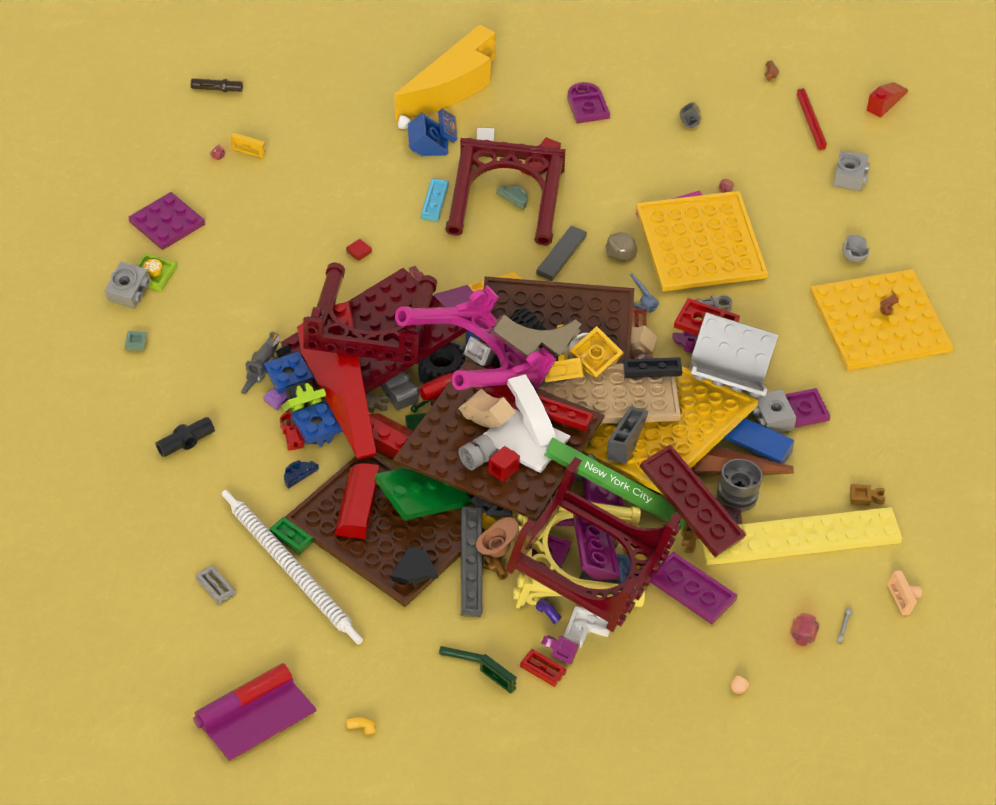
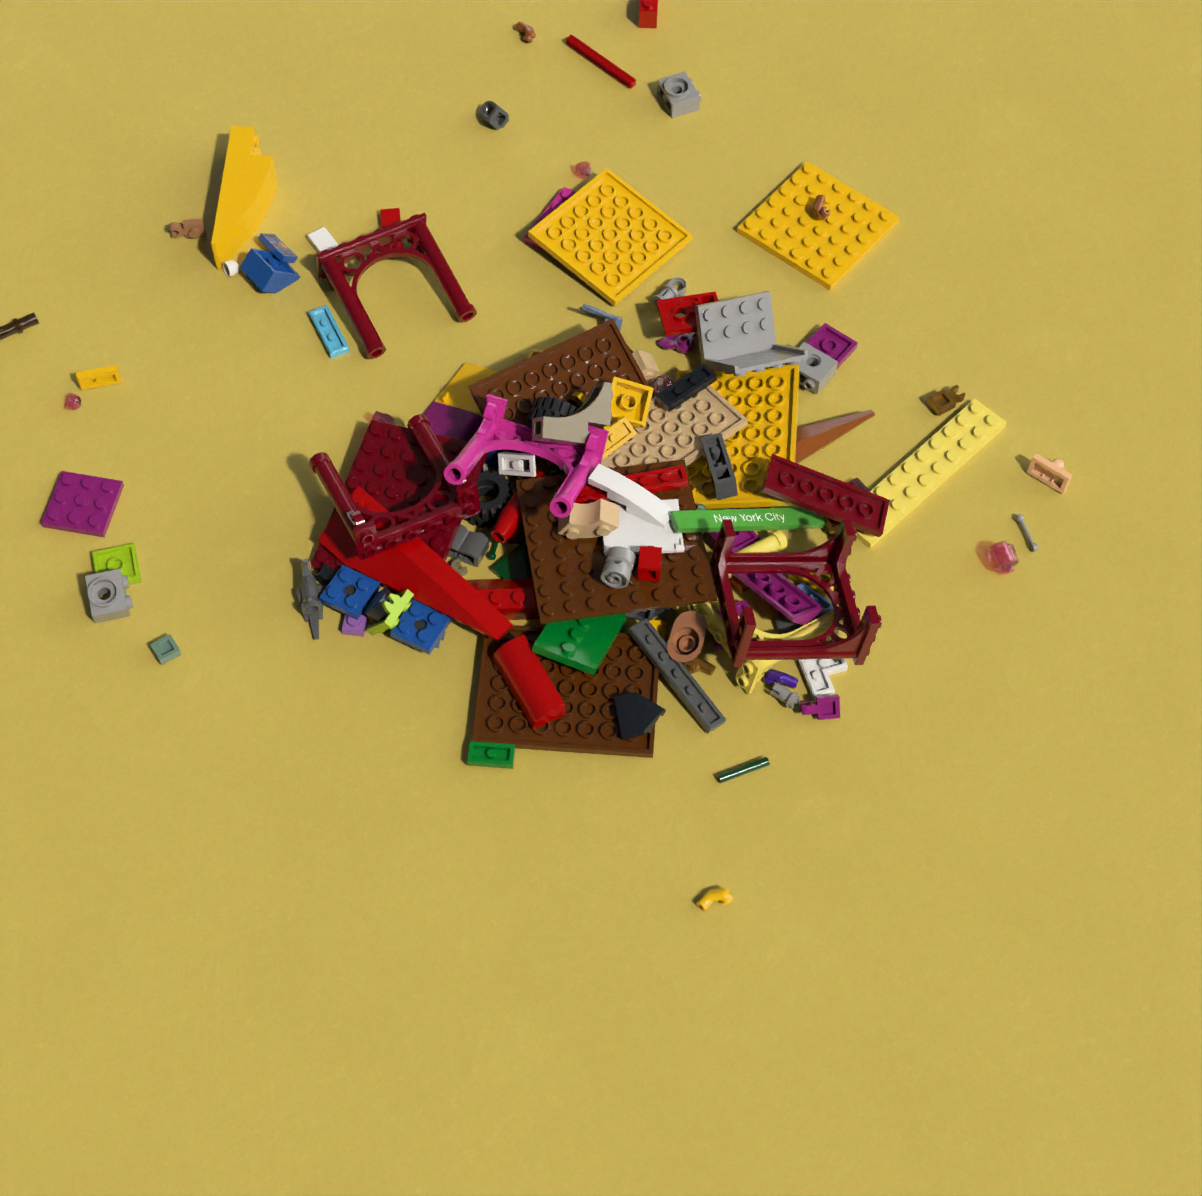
camera: 35 degrees left, 10 degrees up
(154, 267) = (117, 560): yellow tile -> none
(185, 437) = (303, 719): black piece -> none
(223, 596) = (462, 851): light grey tile -> none
(254, 712) = (611, 953): magenta door -> none
(292, 434) = (404, 653): red piece -> none
(292, 567) = (434, 764): white hose -> none
(298, 471) = (441, 687): clear blue plate -> none
(359, 249) = (301, 424): red tile -> none
(396, 80) = (191, 228): none -> medium nougat plate
(498, 673) = (791, 768): dark green tile -> none
(514, 194) = (401, 285): sand green plate -> none
(540, 670) = (820, 740): red tile -> none
(542, 627) = (786, 696): none -> light grey pin
(561, 253) = (492, 319): dark grey tile -> none
(587, 104) = (388, 153): magenta tile -> none
(621, 246) = (543, 282): dark tan hair -> none
(693, 588) = (886, 577): magenta plate -> none
(739, 484) = (843, 454): flat silver wheel -> none
(739, 685) = (993, 644): light nougat hinge -> none
(761, 441) = (826, 401): blue brick -> none
(855, 248) = (745, 169): light grey hair -> none

